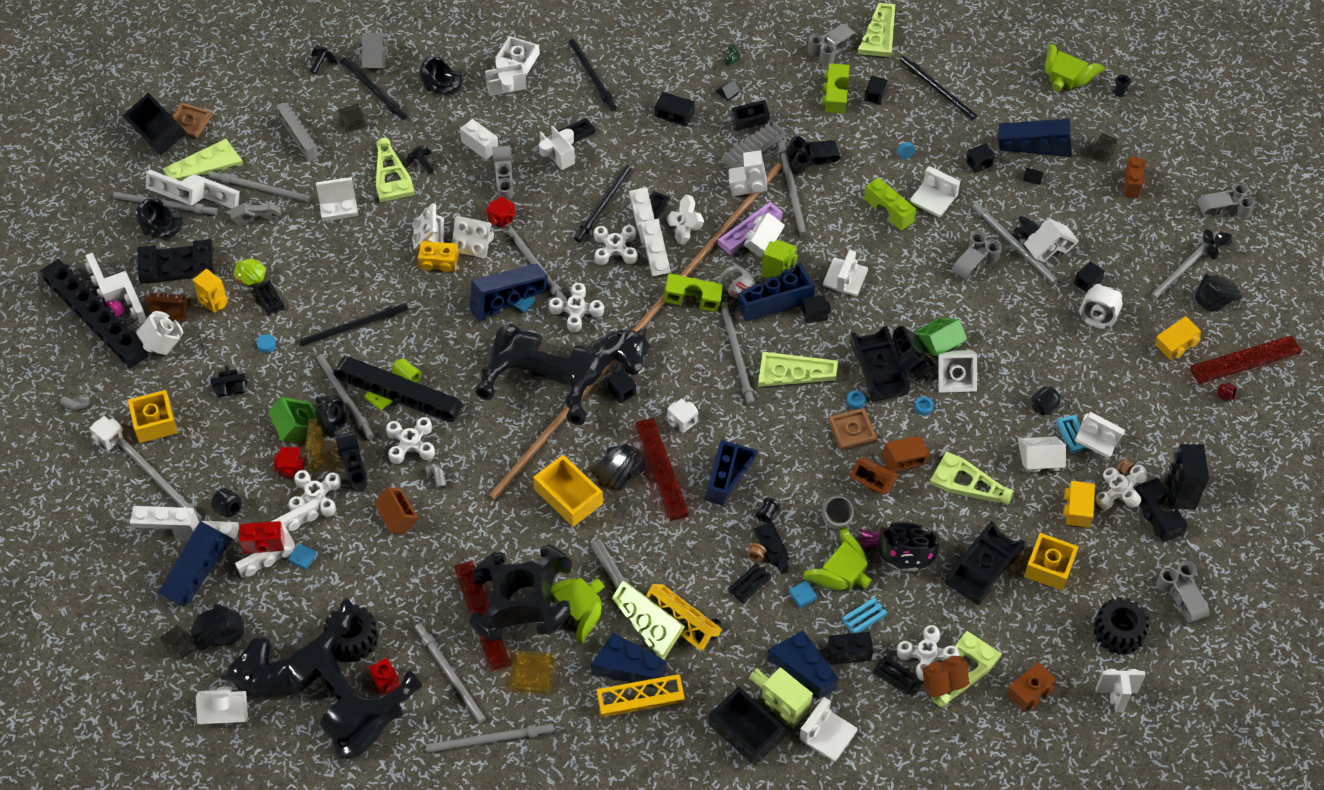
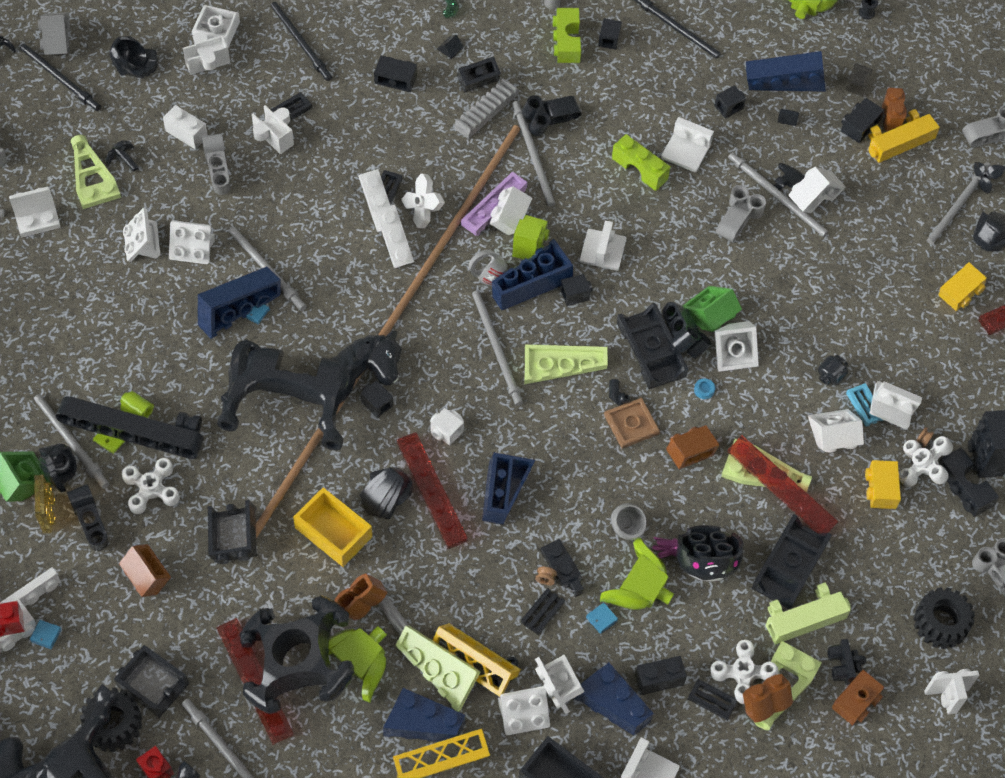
camera: 10 degrees left, 5 degrees up
(288, 462) = (17, 525): red brick -> none
(316, 491) = (46, 562): white gear -> none
(351, 118) = (39, 114): clear smoke brick -> none
(387, 312) = (108, 337): black bar -> none
(391, 604) = (151, 680): none -> window
(438, 256) = (156, 267): yellow brick -> none
(438, 474) = (186, 520): light grey arm -> none
(450, 389) = (189, 422): none -> black wheel
(477, 487) = (232, 533): none -> black window
(500, 212) = (219, 209): red brick -> none
(532, 672) = (318, 741): clear yellow plate -> none
(576, 307) = (315, 312): white gear -> none
(586, 226) = (316, 216): black bar -> none
(586, 551) = (361, 596): none -> dark orange brick
(615, 245) = (350, 236): white gear -> none
(706, 292) = (457, 282): lime arch -> none
(721, 664) = (524, 710): none -> white bracket
(749, 178) = (487, 146): white brick -> none
(755, 641) = (559, 681): none -> white bracket
(768, 509) = (552, 526): black bush -> none
(783, 696) = (596, 740): yellowish green brick -> none
(839, 402) = (615, 395): none -> black arm
(856, 399) = (632, 388): dark azure tile -> none
(873, 475) = (662, 475): dark orange brick -> none
(877, 607) = (683, 624): medium azure tile -> none
(906, 150) = (650, 99): dark azure tile -> none
(984, 496) = (782, 486): none -> clear red plate
(993, 612) = (807, 617): none -> yellowish green brick
(1021, 646) = (849, 663): none -> black hips
(1051, 561) = (862, 553): yellow brick -> none
(1089, 276) = (861, 226): black brick -> none
(1101, 306) = (878, 259): white brick -> none
(1102, 184) = (861, 119): none -> black brick
(1139, 203) = (903, 138): none -> yellow brick

